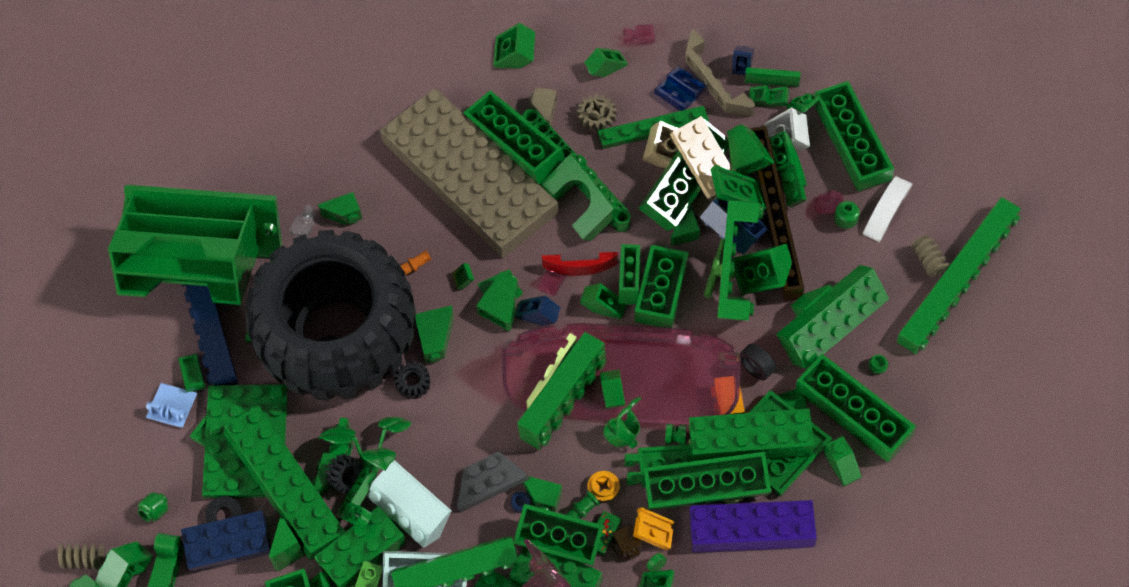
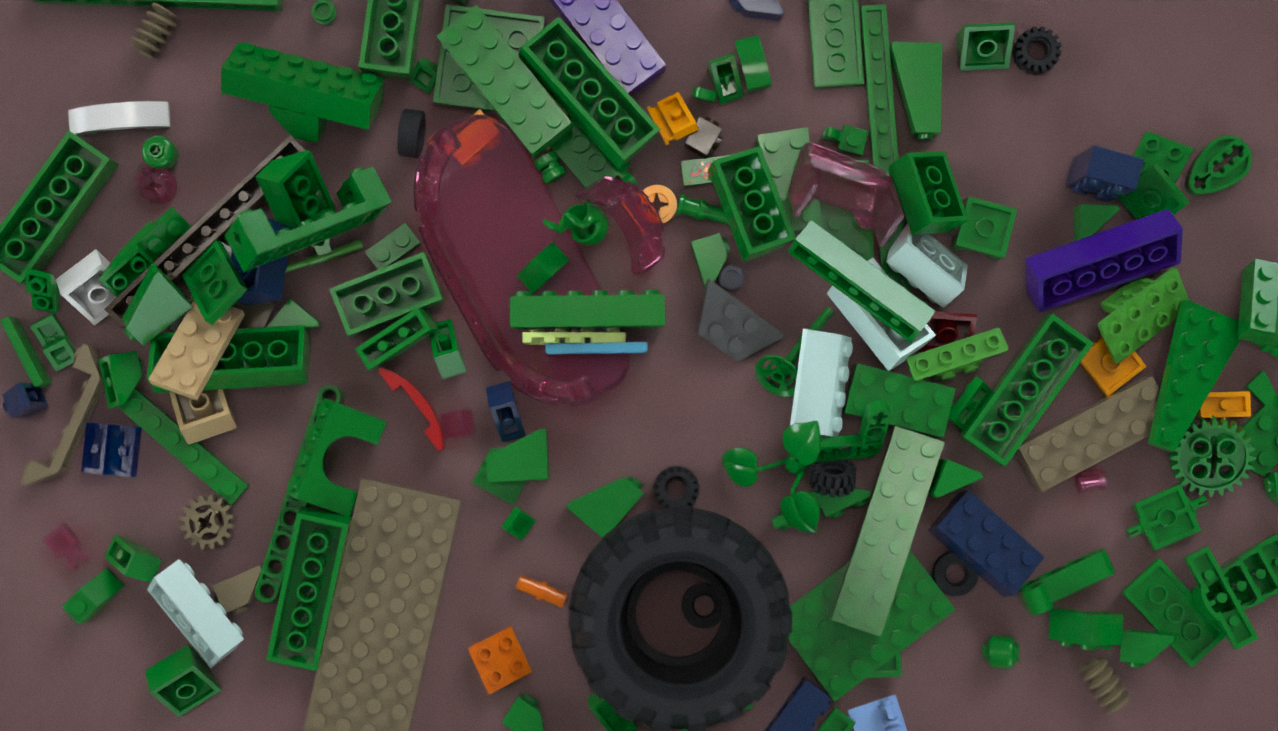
camera: 135 degrees left, 25 degrees up
(390, 216) = (499, 660): none -> orange hinge
(435, 486) = (784, 368): none -> green dish
(520, 405) = (596, 348): none -> medium azure tile
(546, 72) = (195, 613): none -> light aqua brick
(599, 29) = (93, 596): none -> green slope
(604, 465) = (635, 217): none -> clear pink windscreen
(692, 312) = (393, 247): none -> green plate
(719, 115) = (120, 376): none -> green slope

